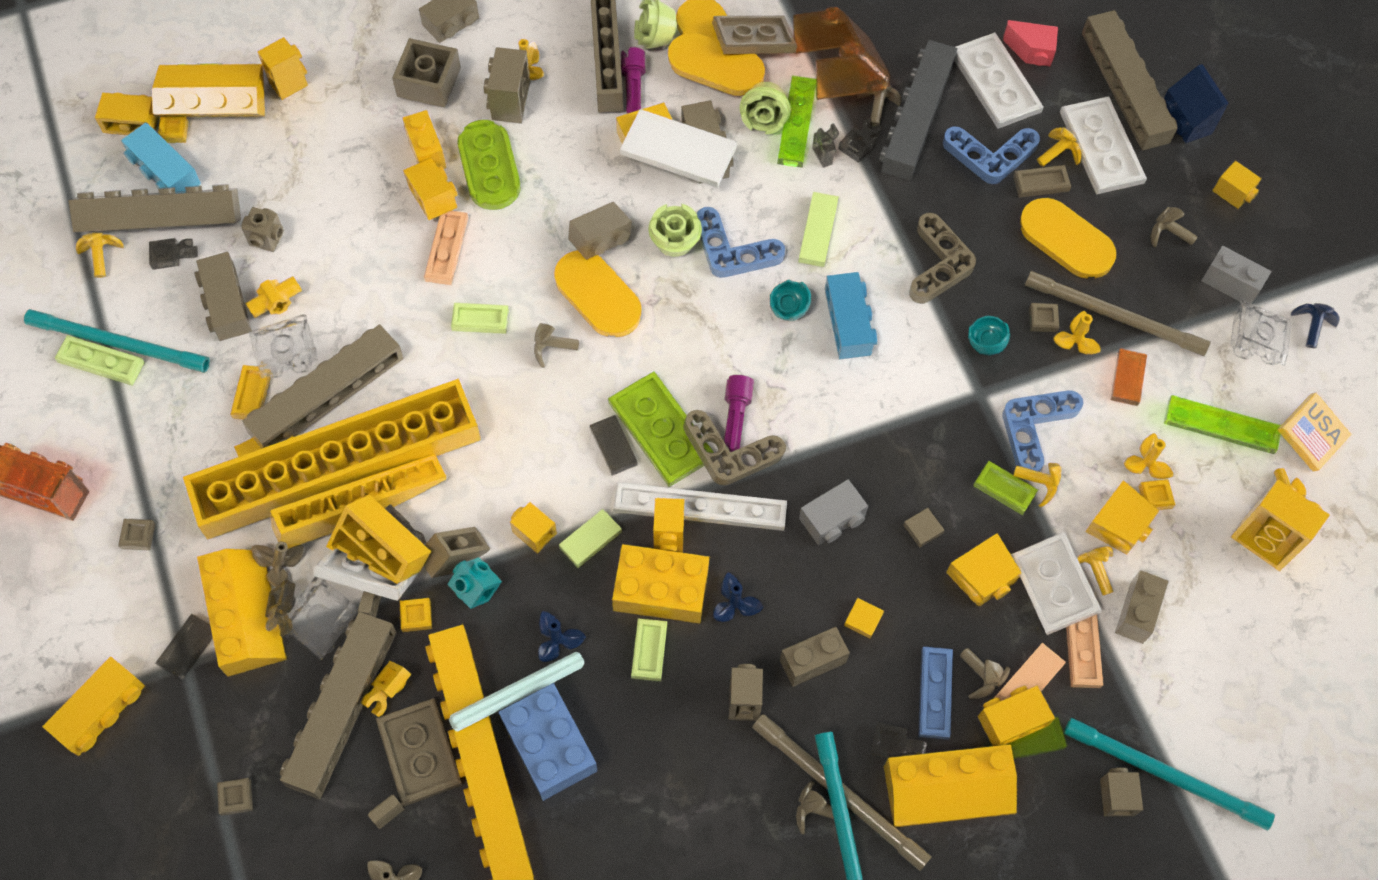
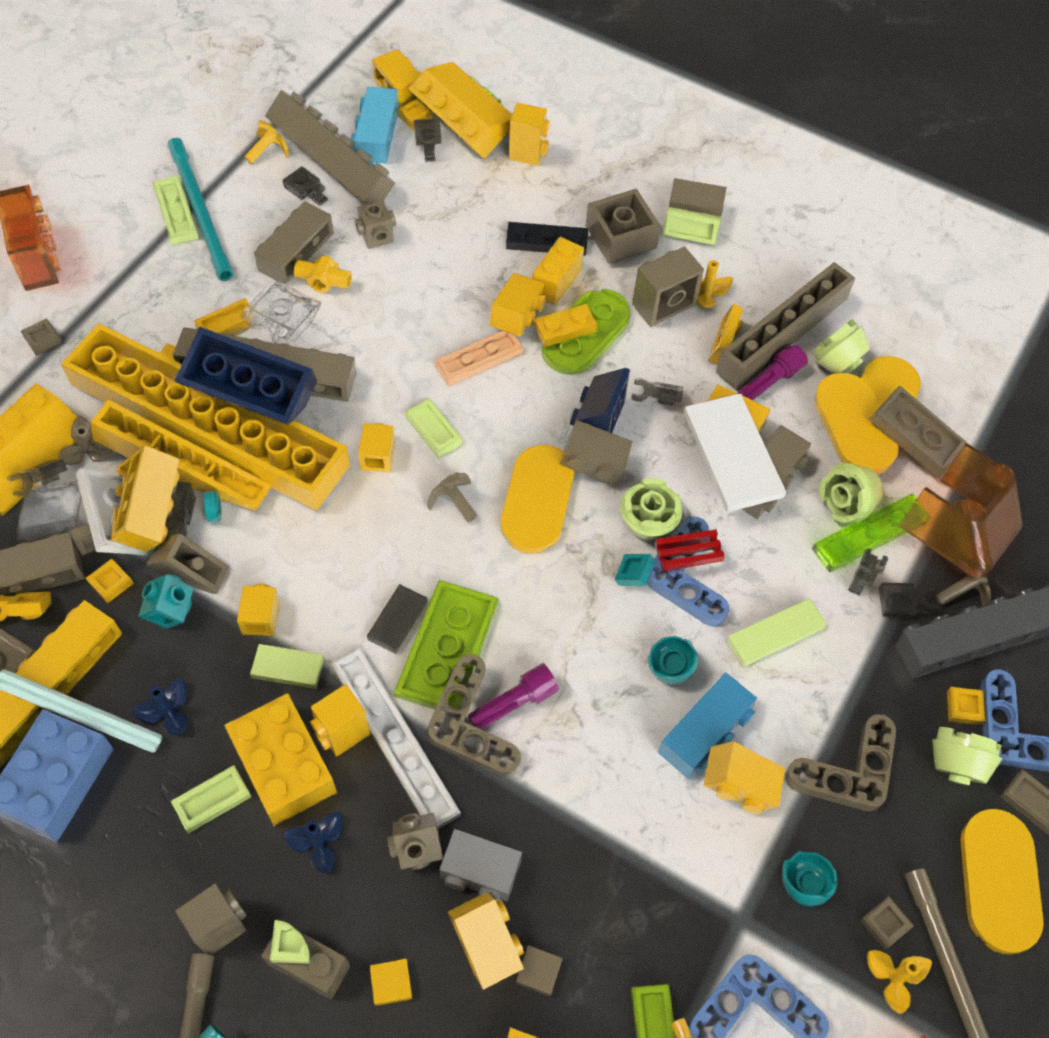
camera: 50 degrees right, 5 degrees down
(206, 133) = (427, 134): none -> clear smoke plate
(340, 402) = (246, 376): none -> dark blue slope
(381, 130) = (542, 237): none -> black plate
(417, 504) = (212, 506): none -> teal tile
(466, 30) = (691, 226): none -> yellowish green tile
(466, 363) = (377, 447): none -> yellow brick
(476, 172) = (565, 325): none -> yellow plate
(565, 195) = (603, 400): none -> dark blue slope
(577, 82) = (728, 328): none -> yellow plate
(588, 155) = (665, 393): none -> clear smoke plate
(706, 274) = (634, 570): none -> teal tile
(731, 214) = (677, 546): none -> red tile
(788, 537) = (415, 841): none -> dark tan brick
(804, 652) = (288, 945): none -> yellowish green tile
(886, 539) = (486, 939): none -> yellow brick
(902, 319) = (744, 777): none -> yellow brick
(952, 167) = (966, 706): none -> yellow tile
(986, 192) = (965, 756): none -> yellowish green cone

